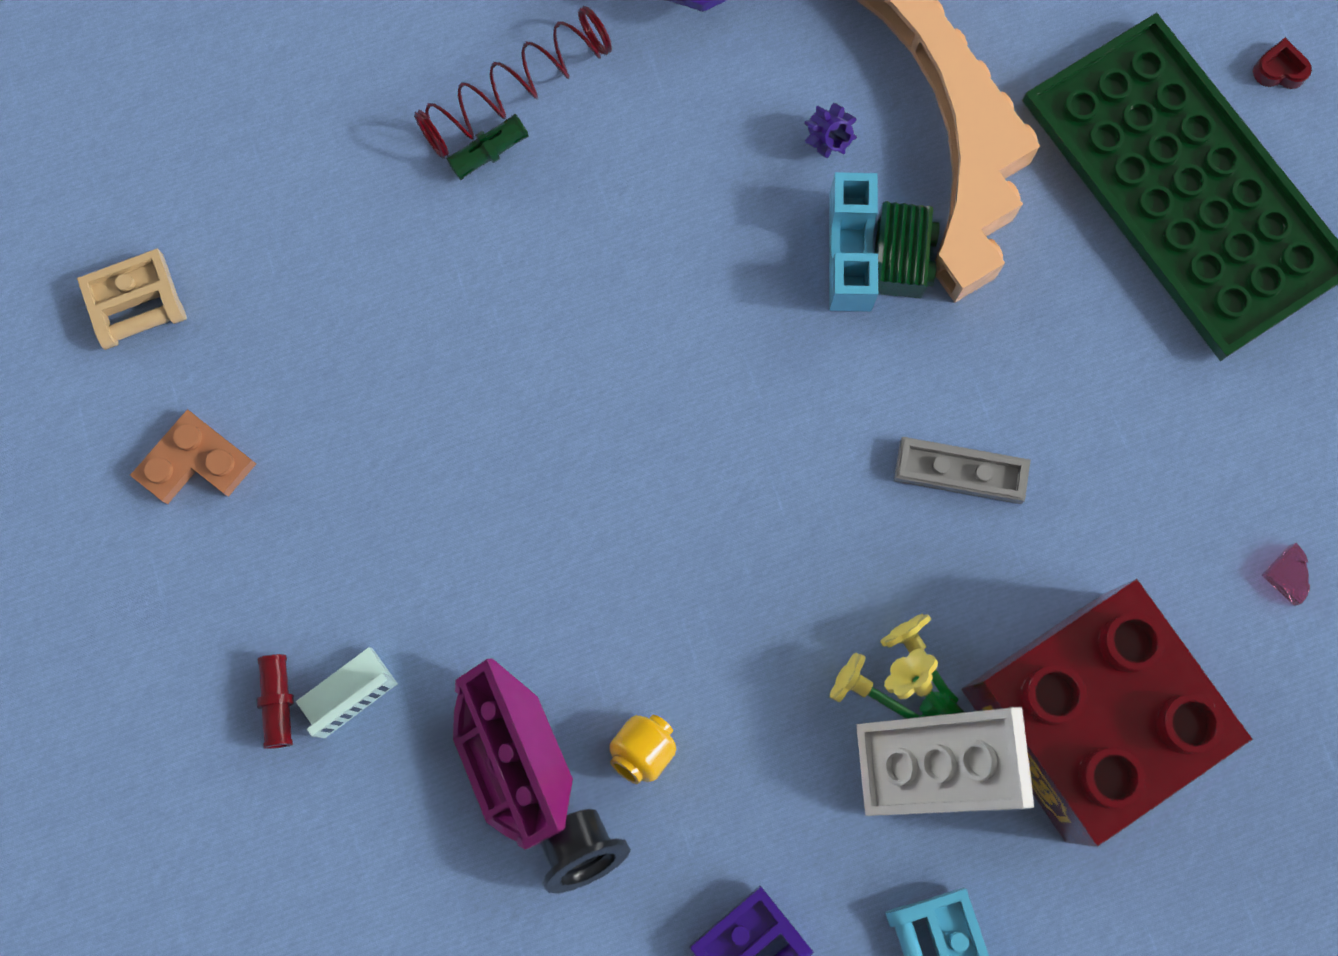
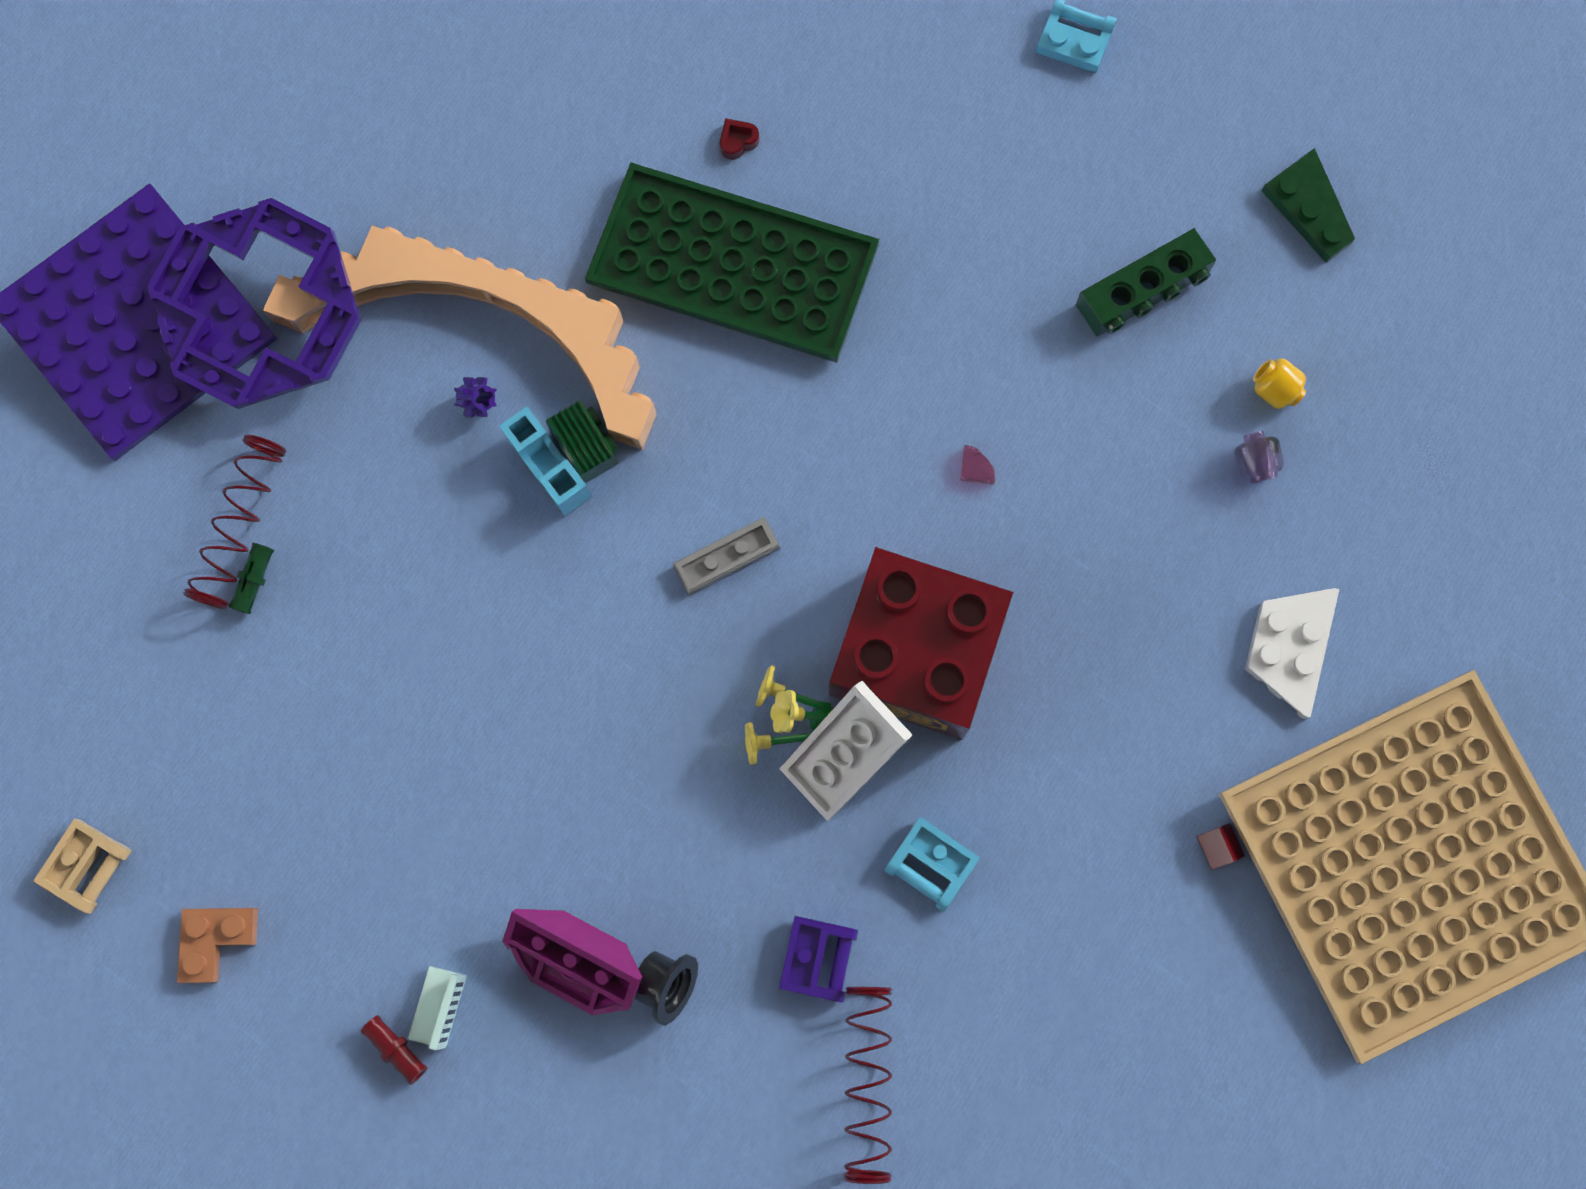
camera: 35 degrees left, 0 degrees up
(642, 748) = (656, 890): yellow head -> none

